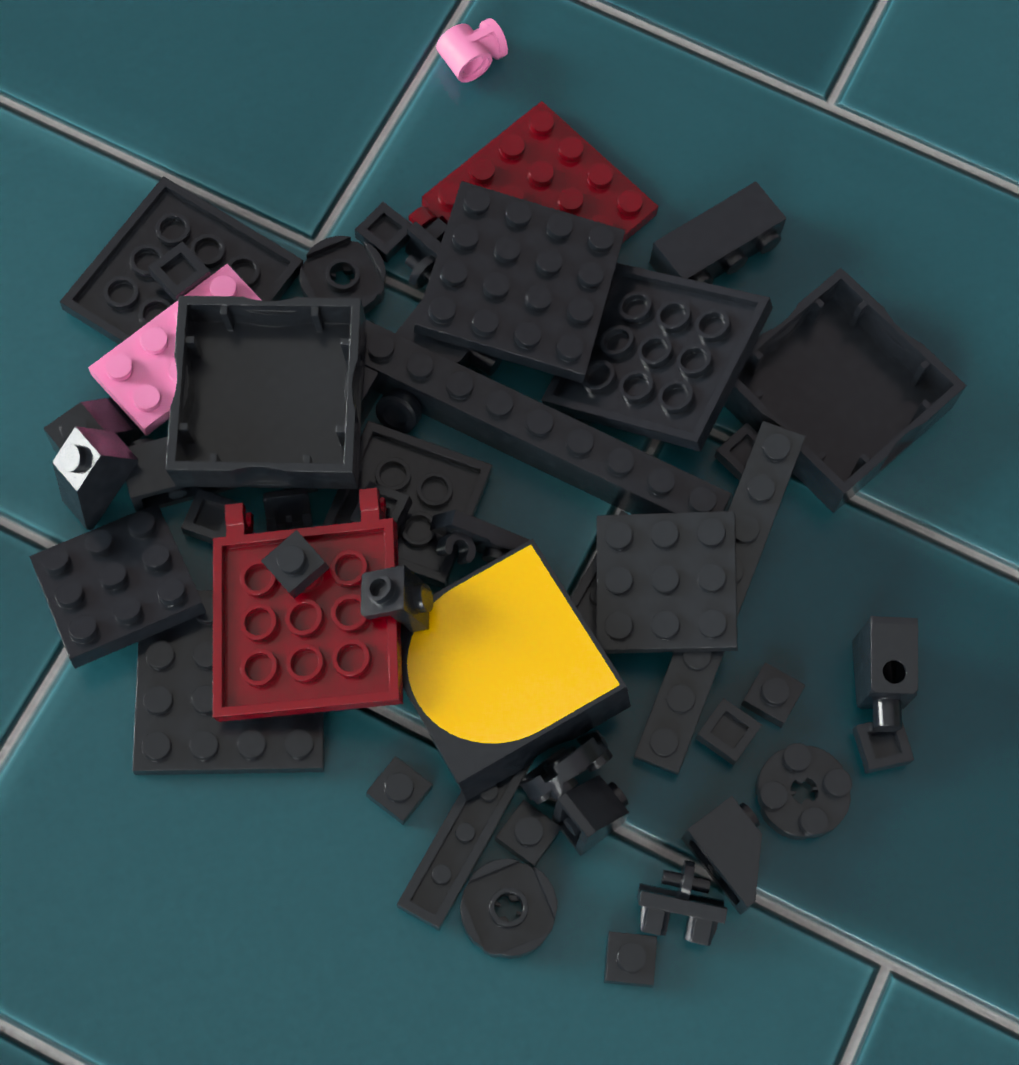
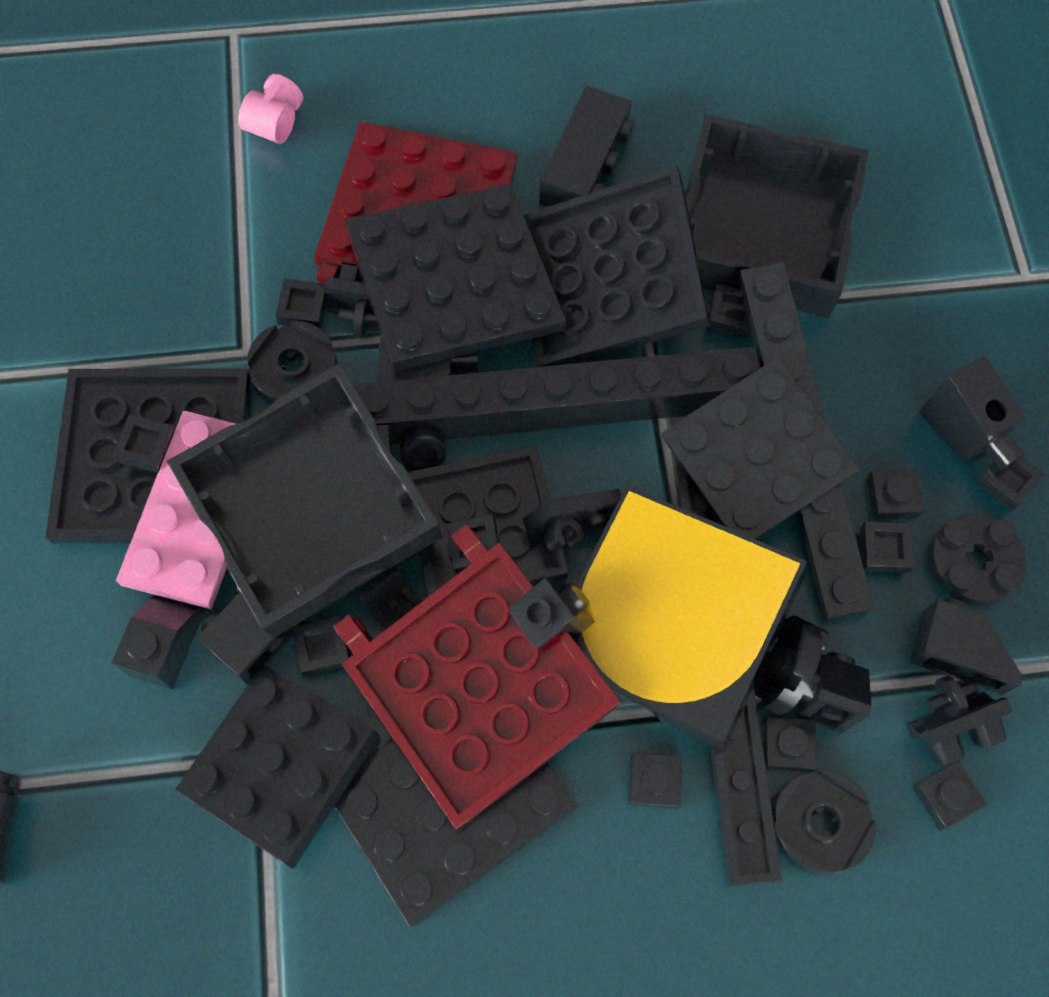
camera: 30 degrees left, 0 degrees up
(91, 472) = (186, 674): black slope -> none
(295, 564) = (439, 639): black plate -> none

